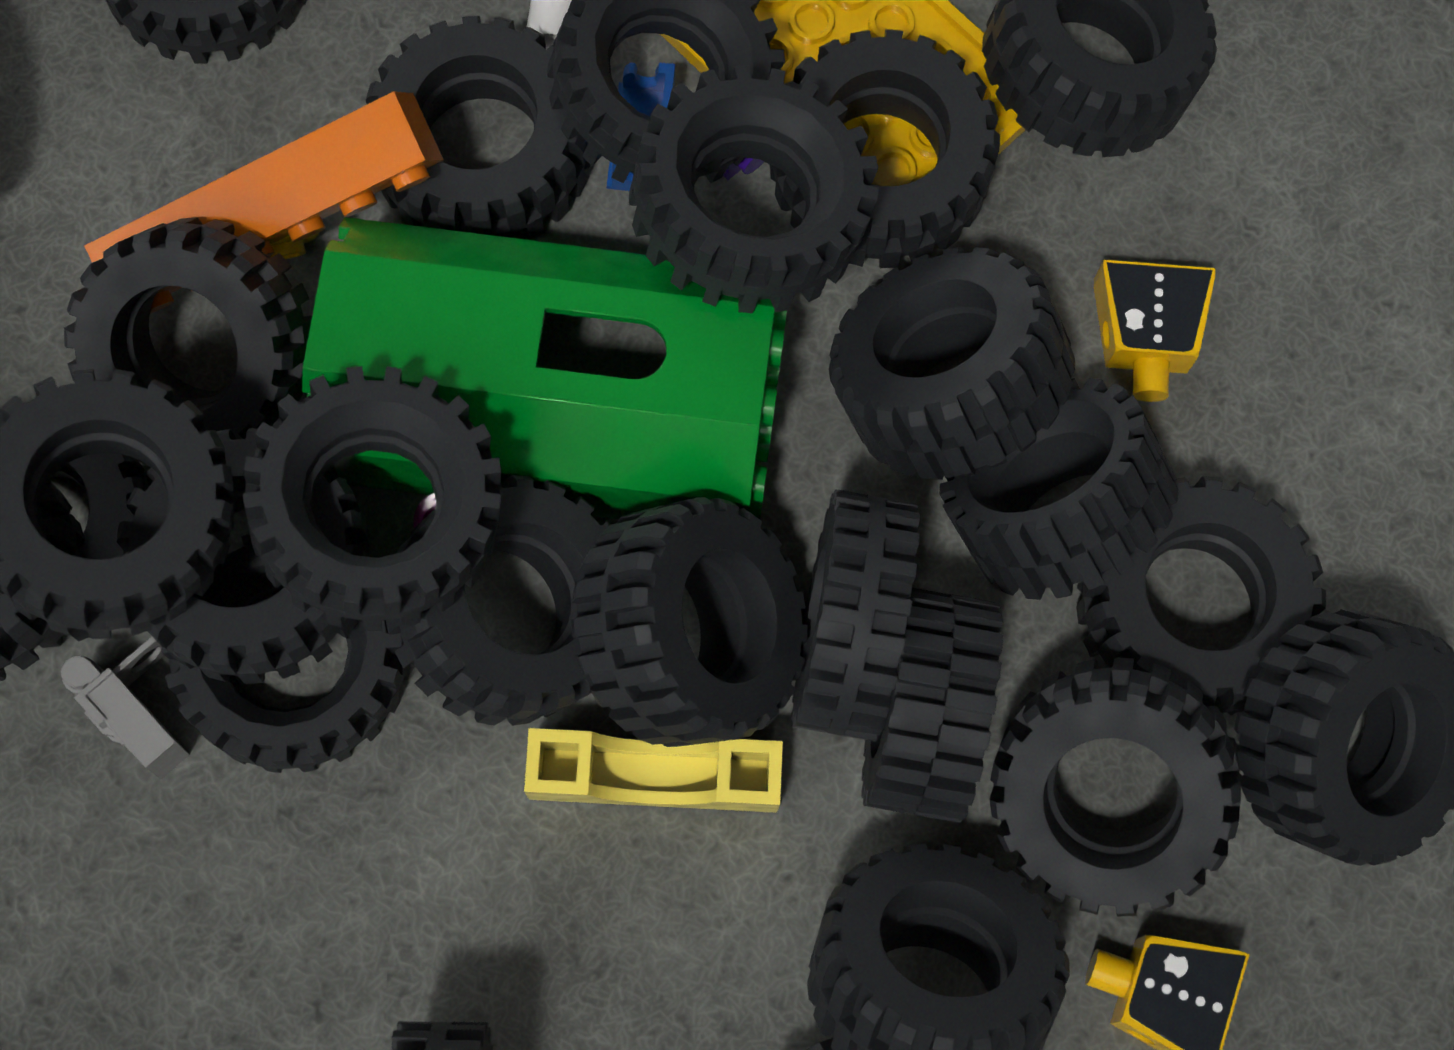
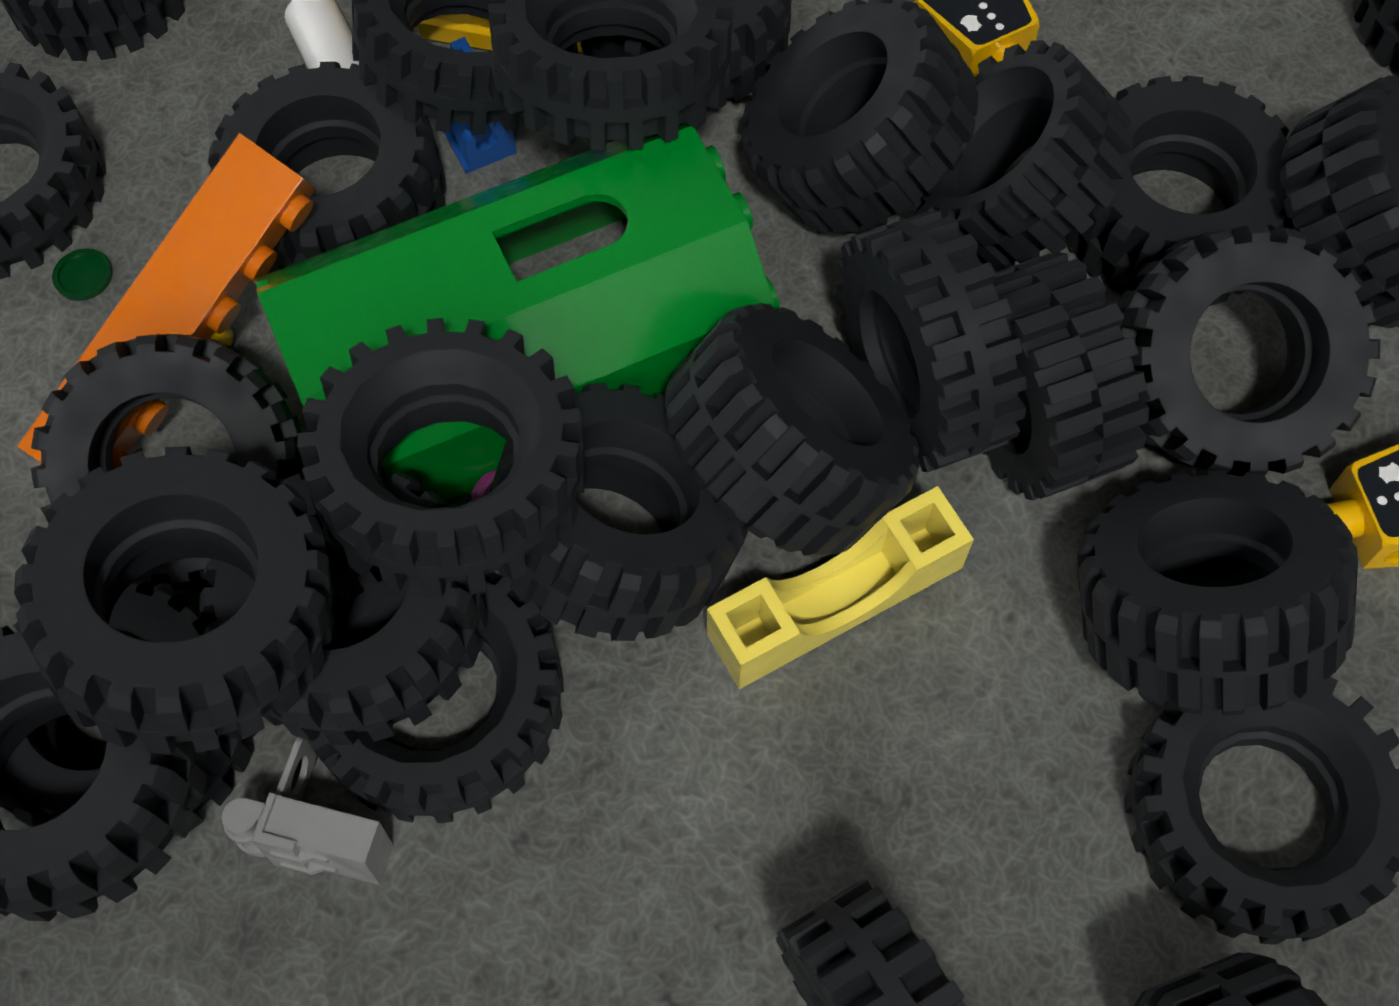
camera: 25 degrees left, 10 degrees down
(232, 94) = (82, 274): none -> dark green piece

